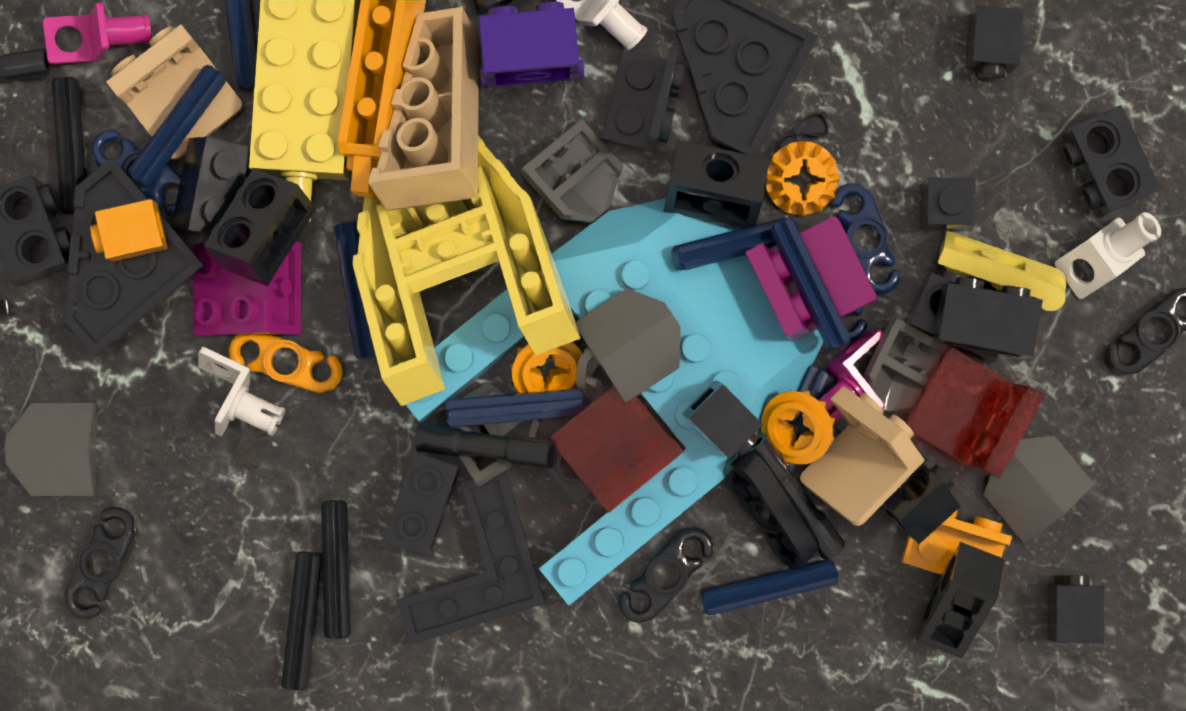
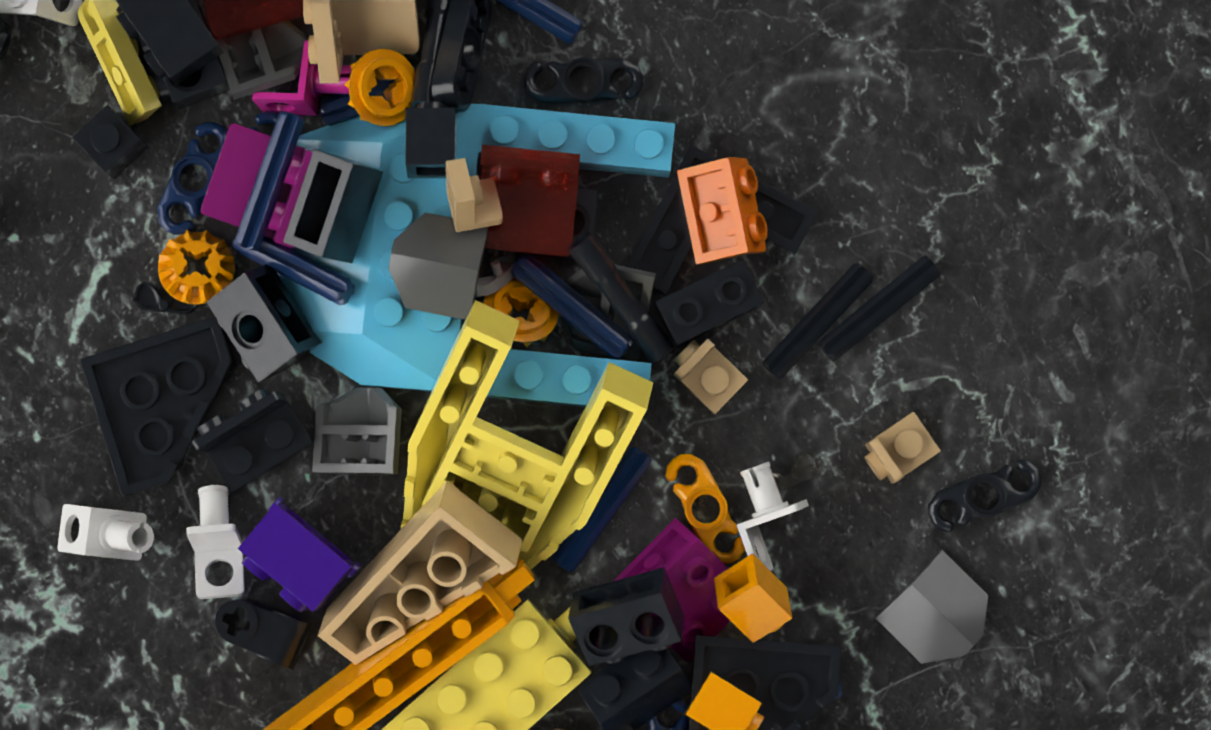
camera: 135 degrees left, 0 degrees up
(187, 328) = (753, 598): none -> light orange brick
(190, 536) = (900, 449): none -> tan bracket
(374, 455) = (708, 374): none -> tan bracket
(475, 578) = (722, 209): none -> orange bracket
(653, 407) = (471, 200): none -> tan bracket
(746, 307) = (333, 206): none -> black piece

